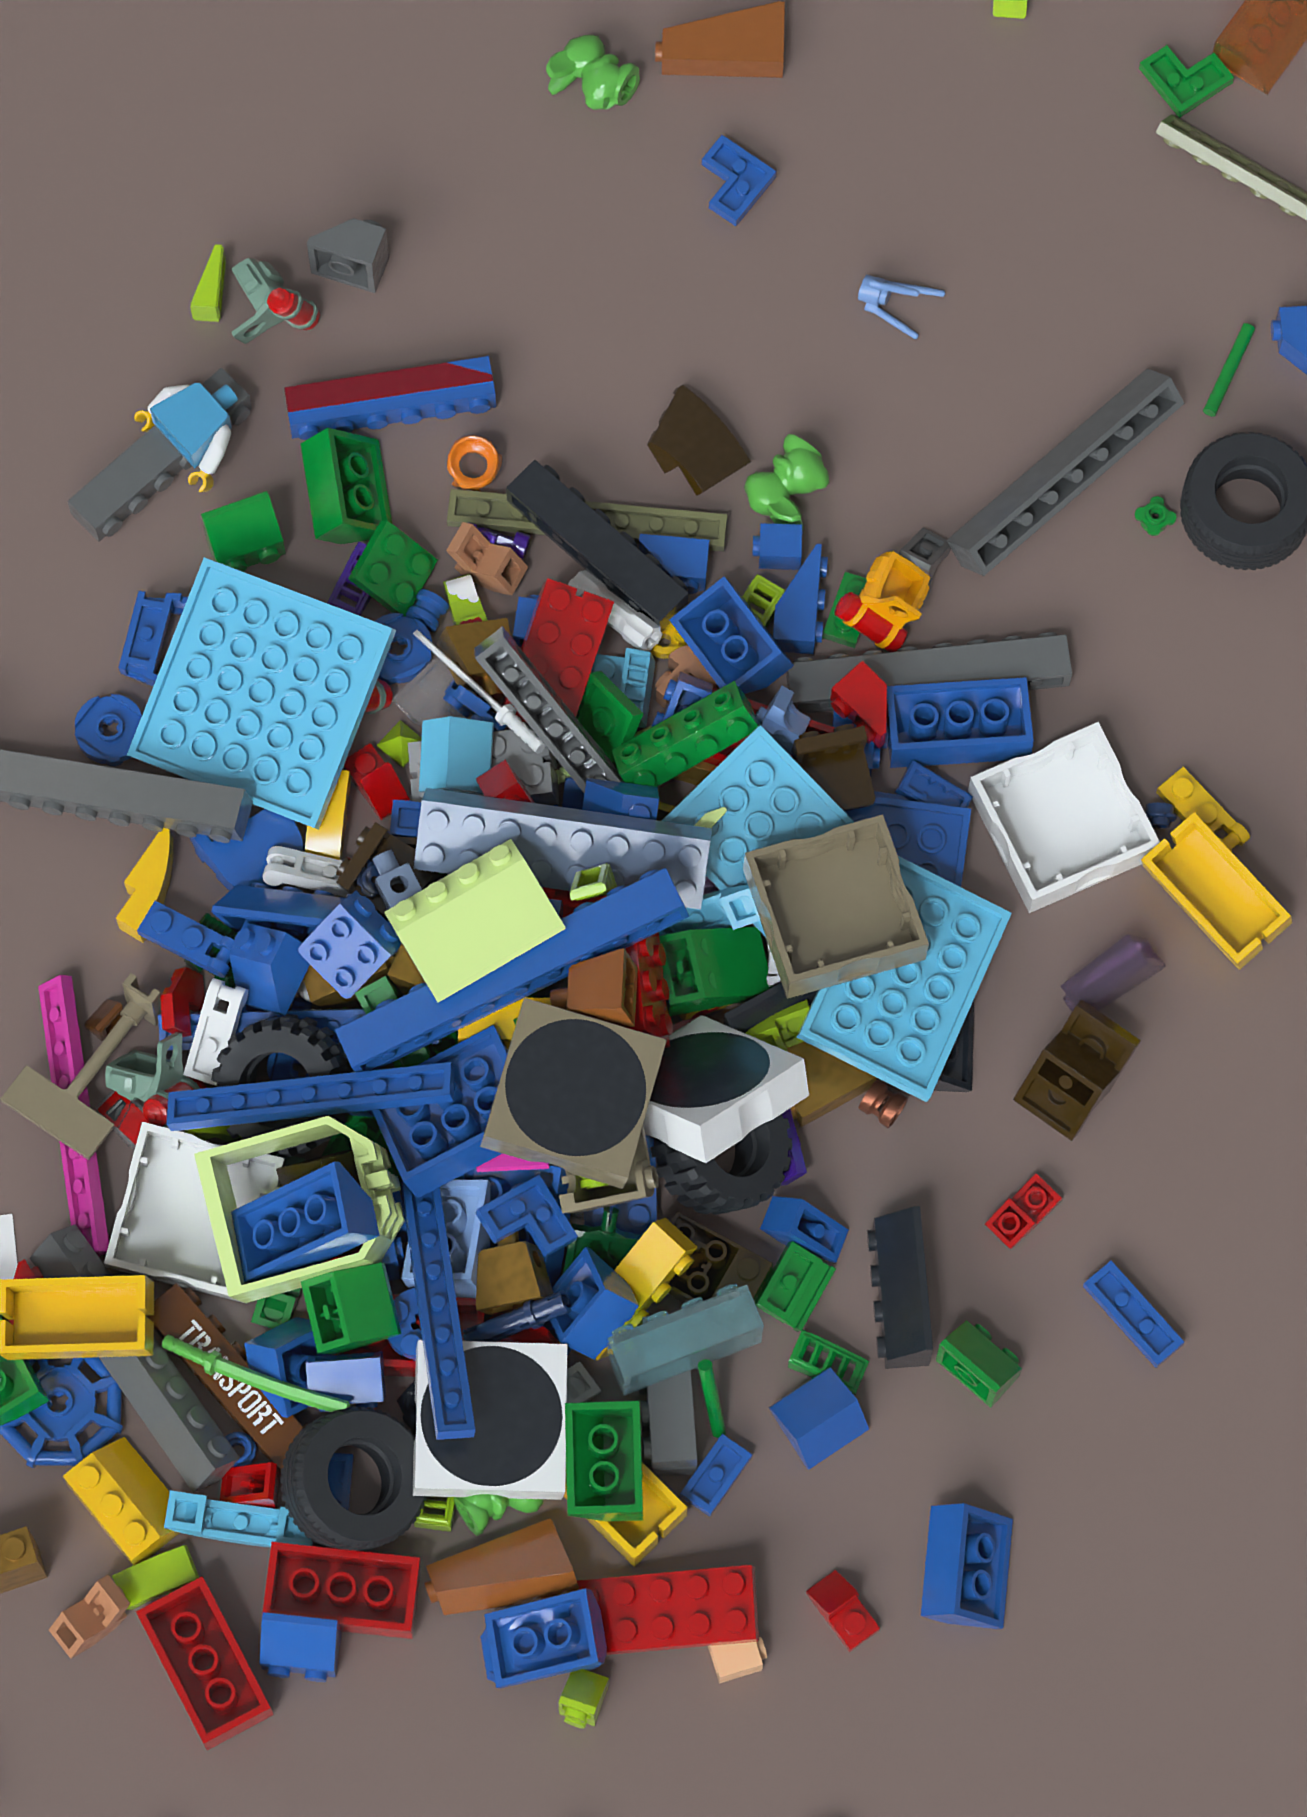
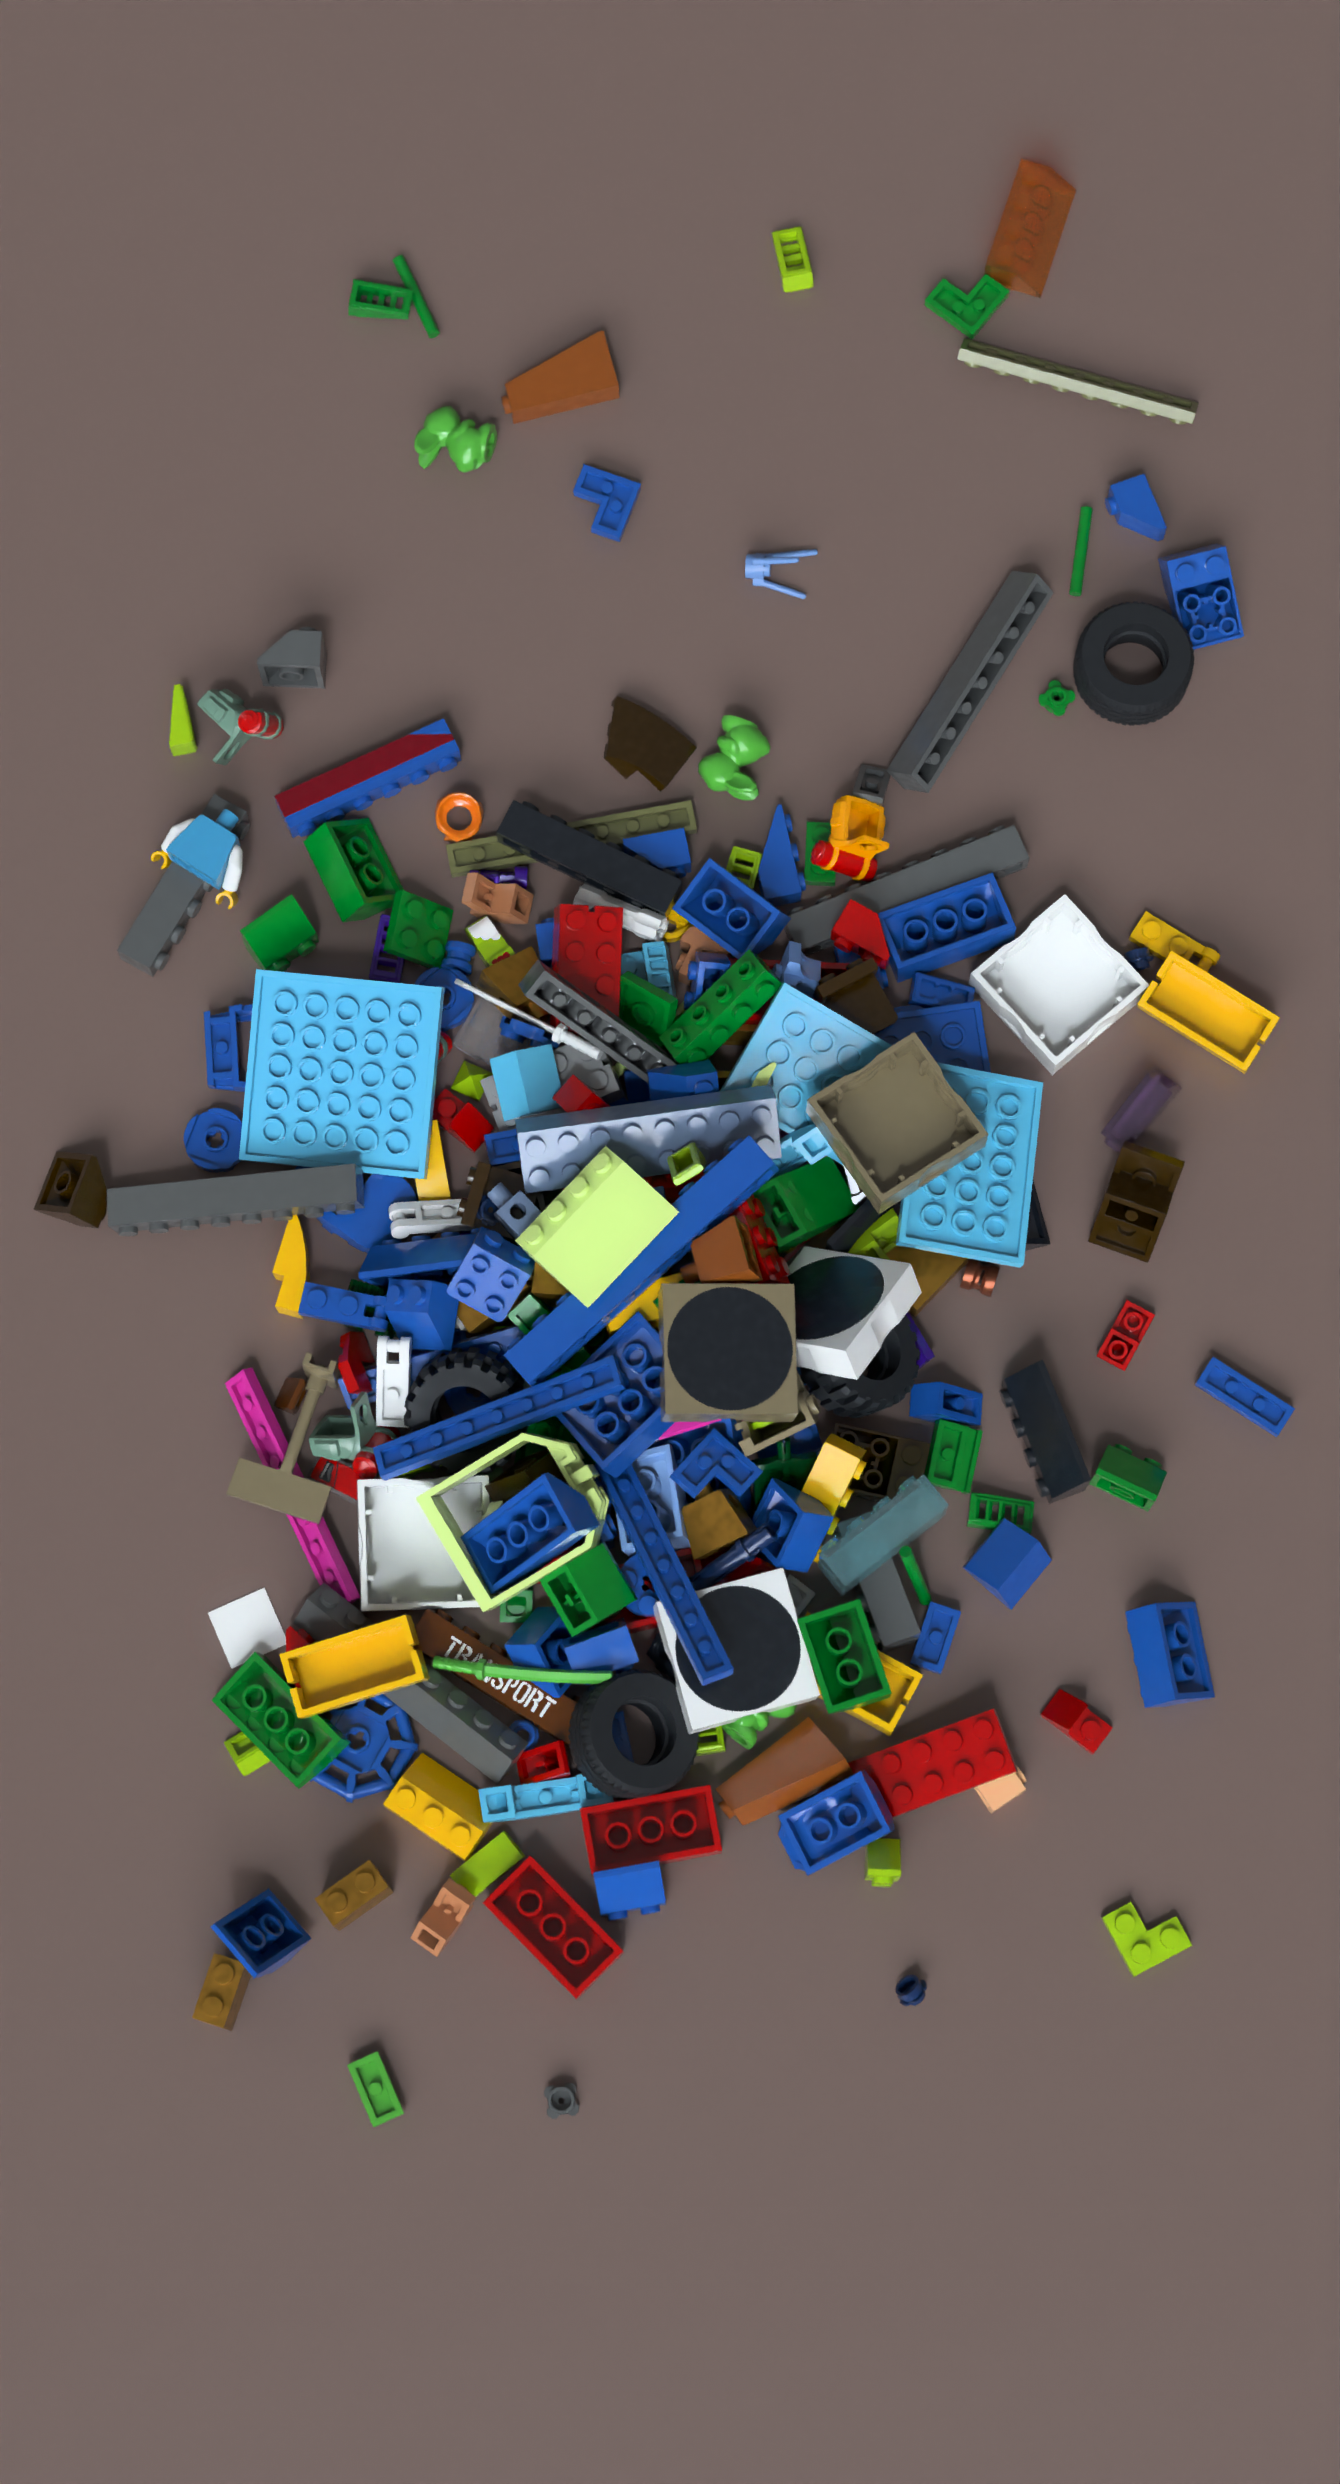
camera: 15 degrees left, 5 degrees up
(778, 546) = (744, 815): blue brick -> none

